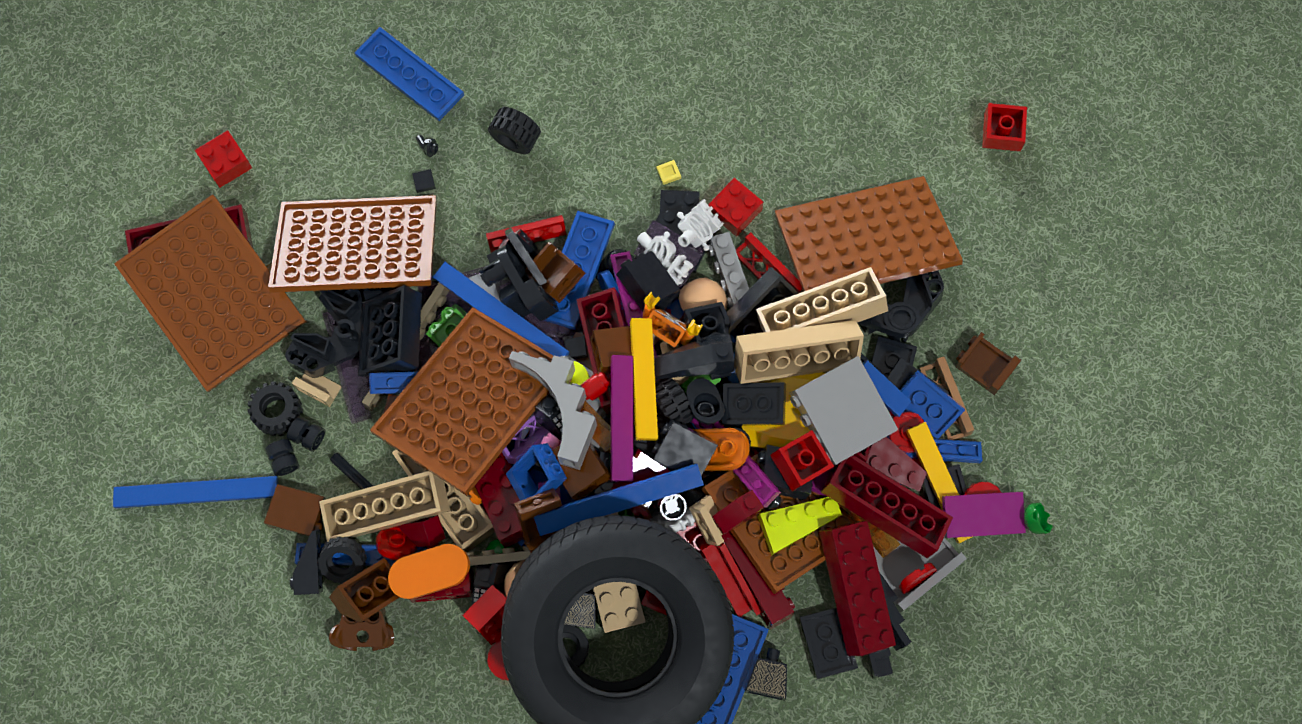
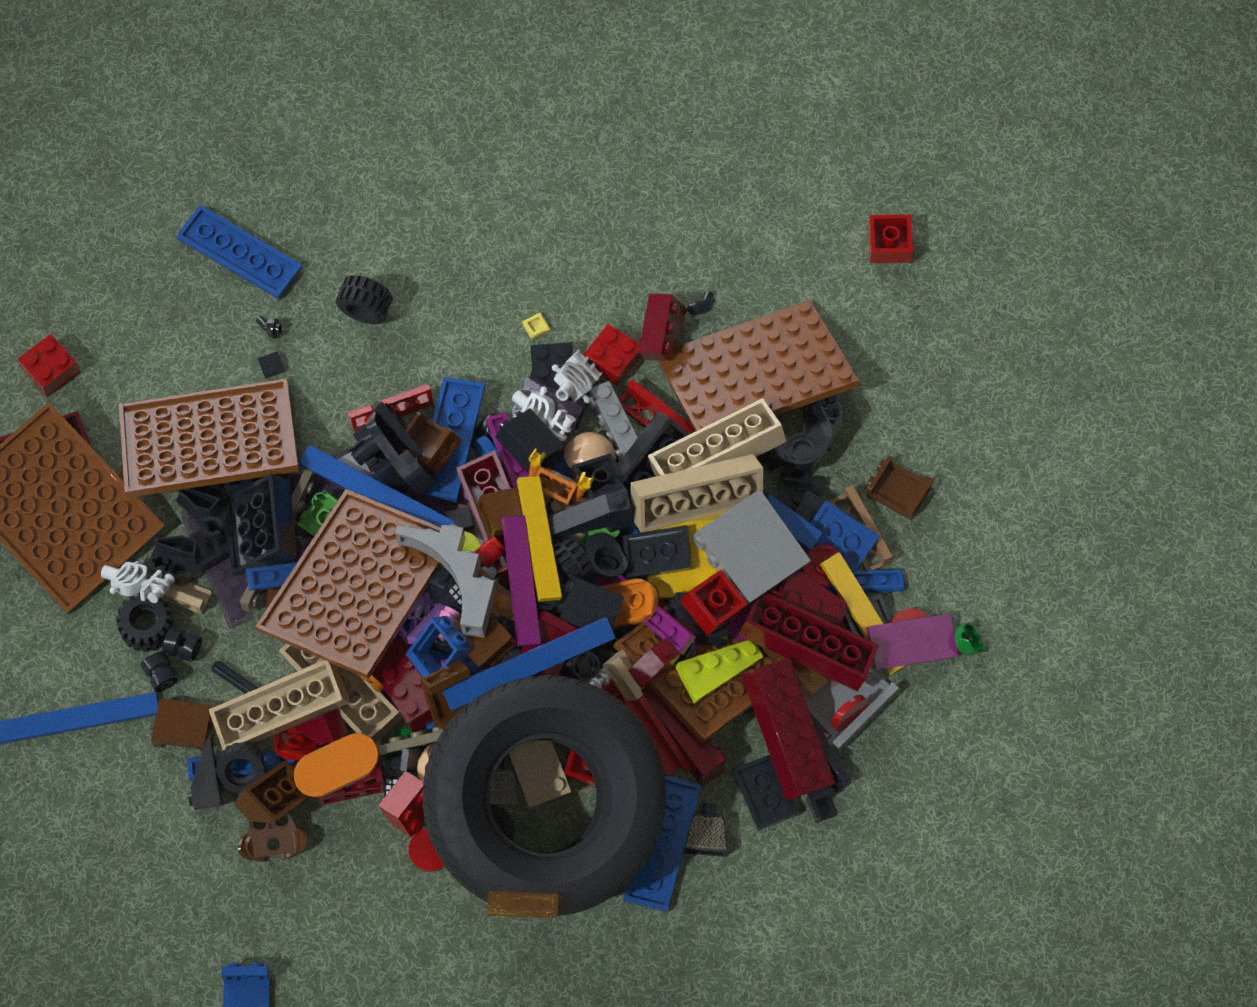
camera: 10 degrees left, 5 degrees down
(269, 368) = (133, 579): none -> white torso
(783, 186) = (661, 326): none -> dark red wedge
(822, 170) = (701, 306): none -> black arm

